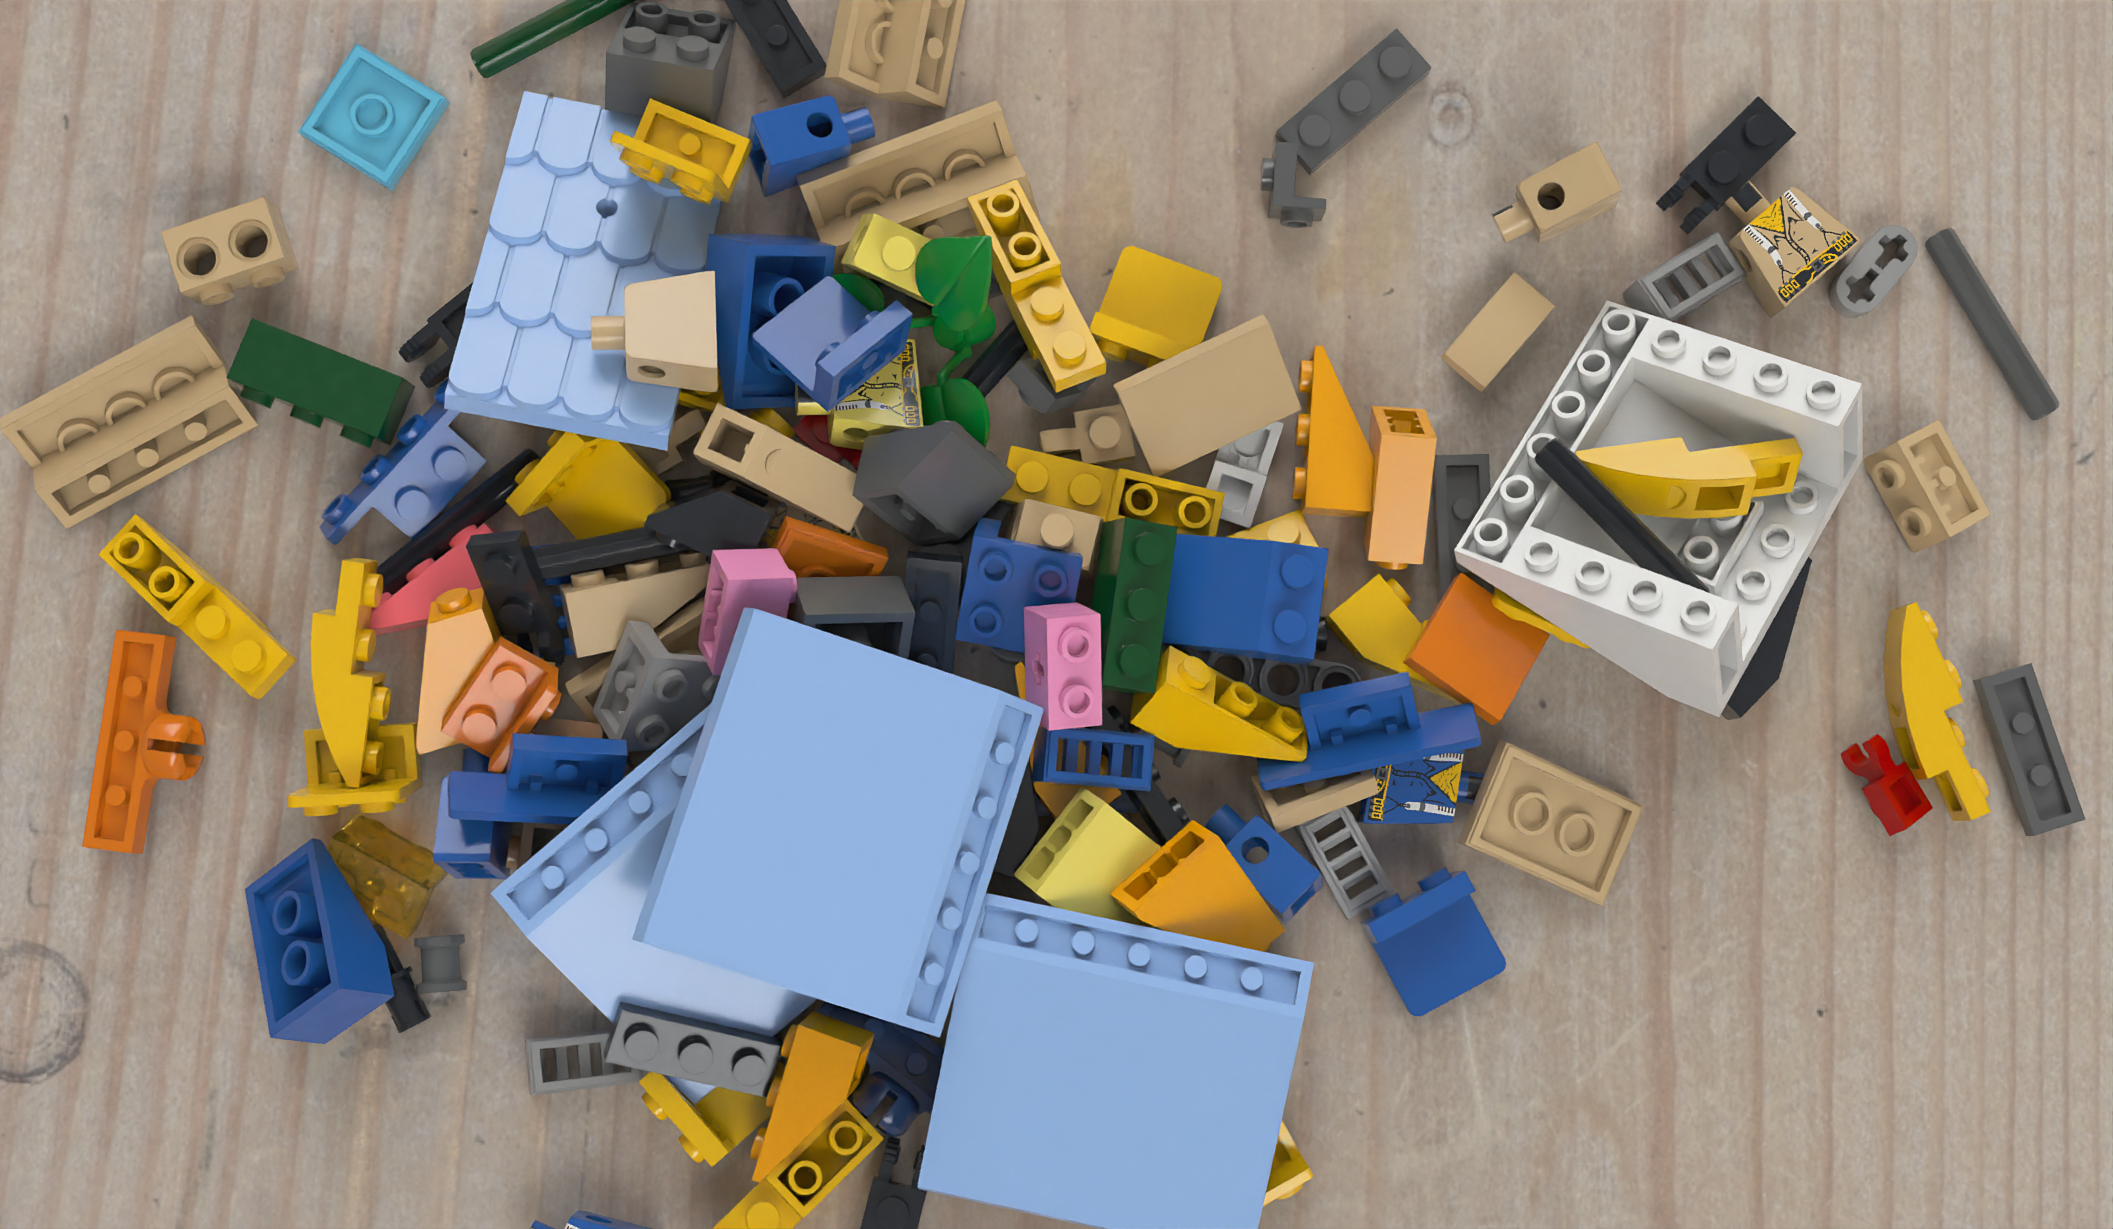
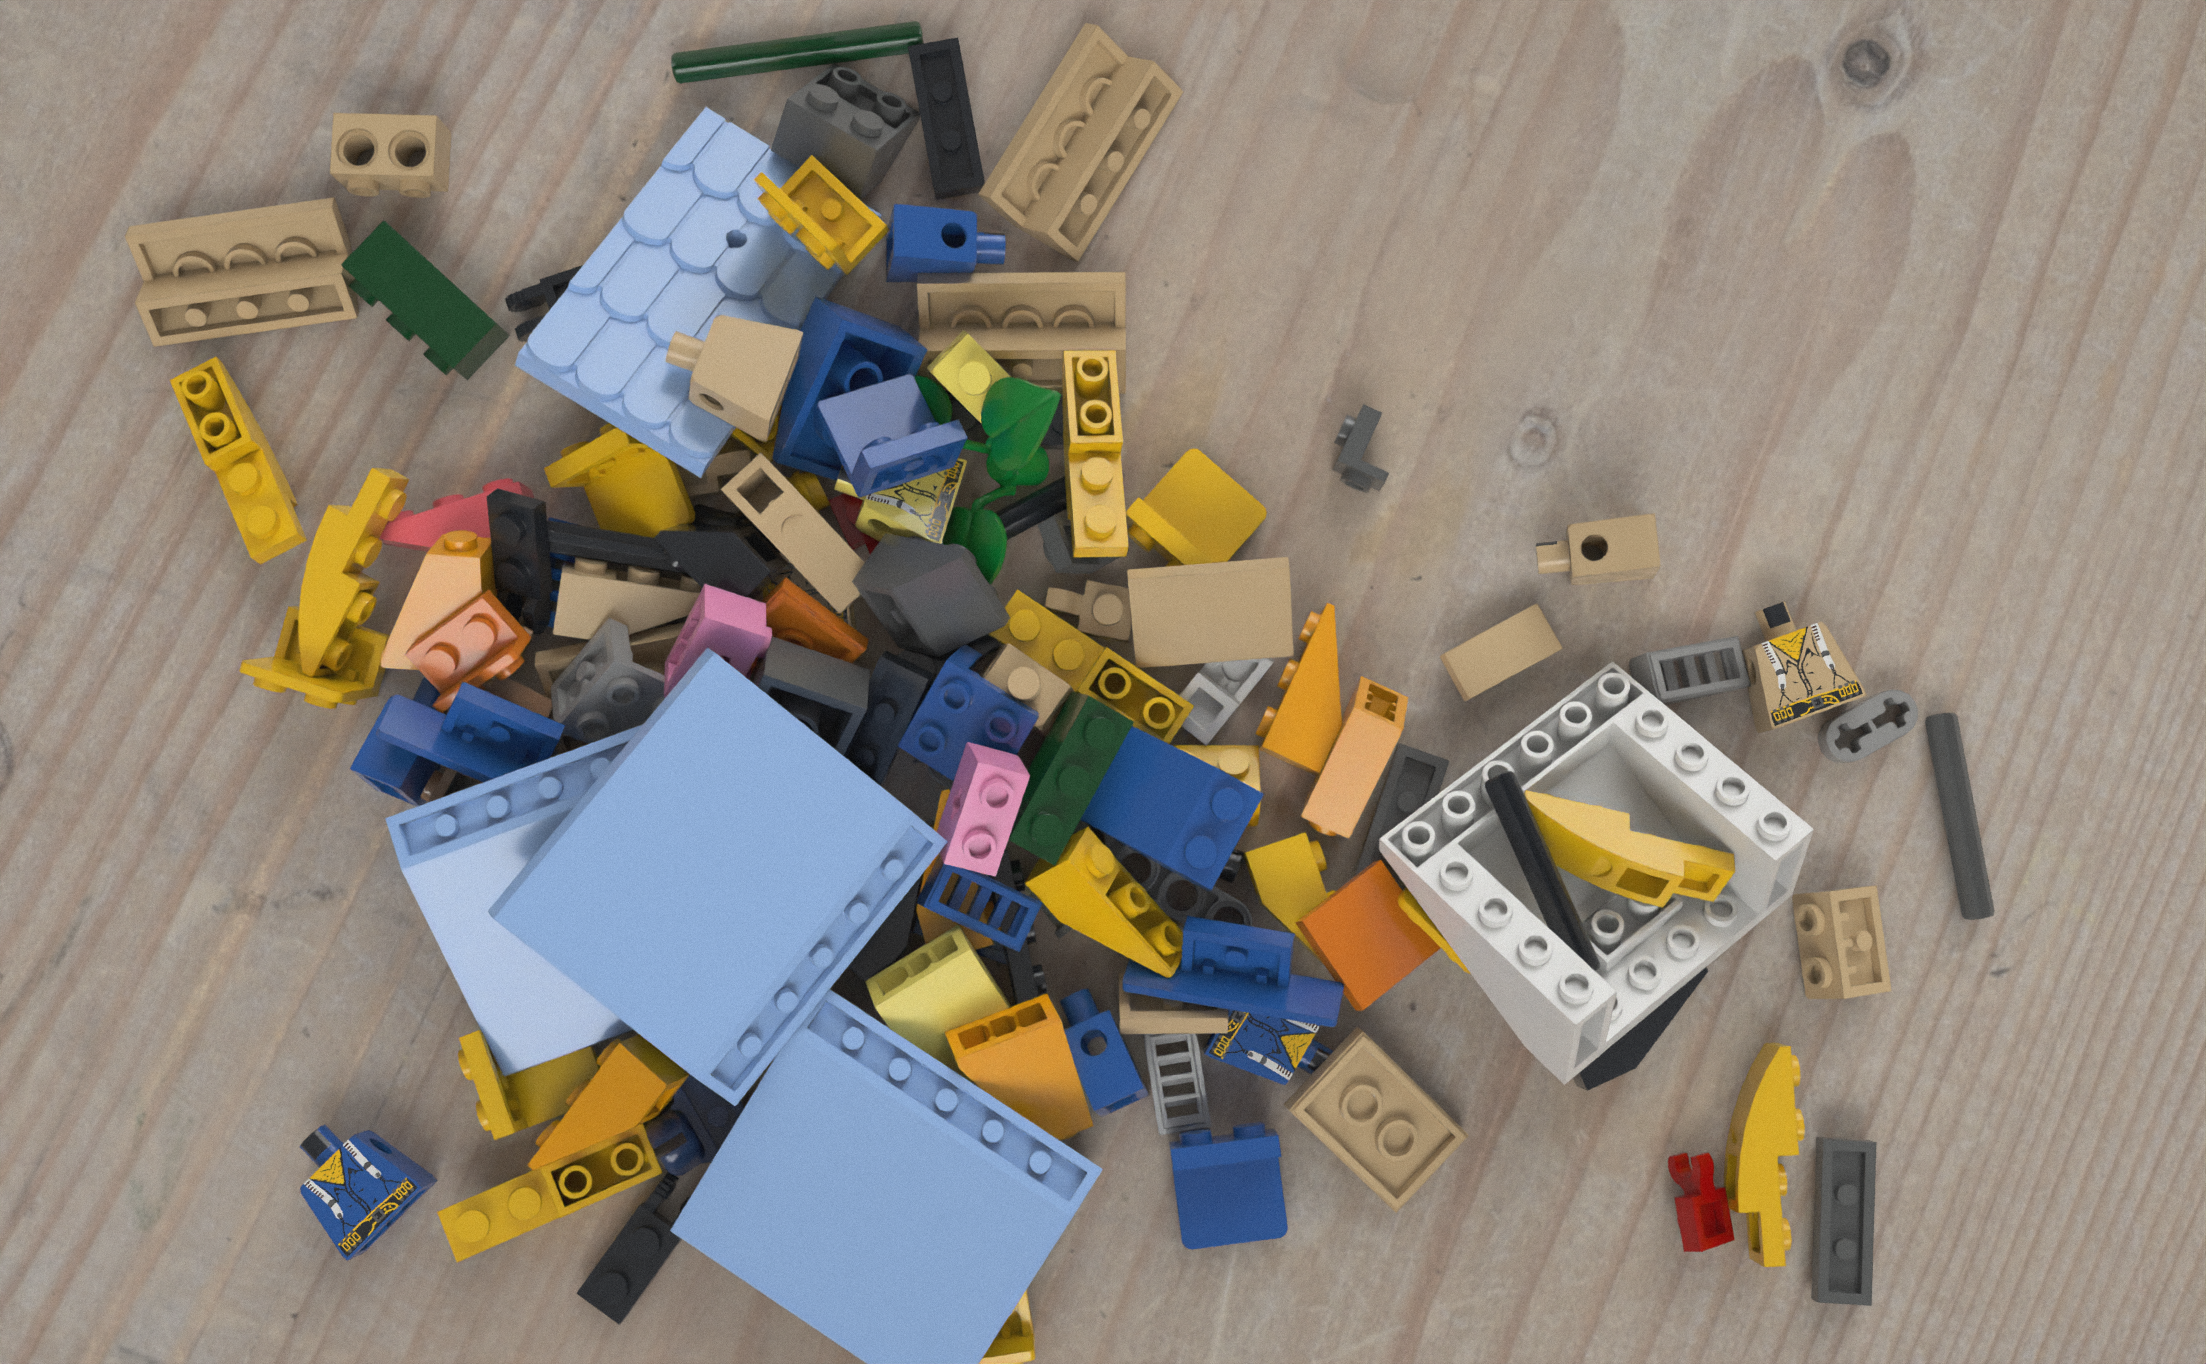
camera: 25 degrees right, 0 degrees up
(137, 743) = (139, 561): orange plate -> none
(314, 948) = (221, 806): blue slope -> none
(374, 117) = (565, 81): medium azure tile -> none
(386, 873) = (306, 760): clear yellow bracket -> none
(406, 1005) = (281, 857): black axle -> none
(412, 478) = (469, 419): bracket -> none
(440, 963) = (329, 861): dark grey bush -> none
(471, 510) = (470, 479): black axle -> none
(537, 1071) = (380, 984): light grey slope -> none
(693, 1049) = (518, 1027): plate -> none
(1354, 100) = (1450, 393): dark grey plate -> none
(1730, 161) = (1774, 576): black hinge -> none

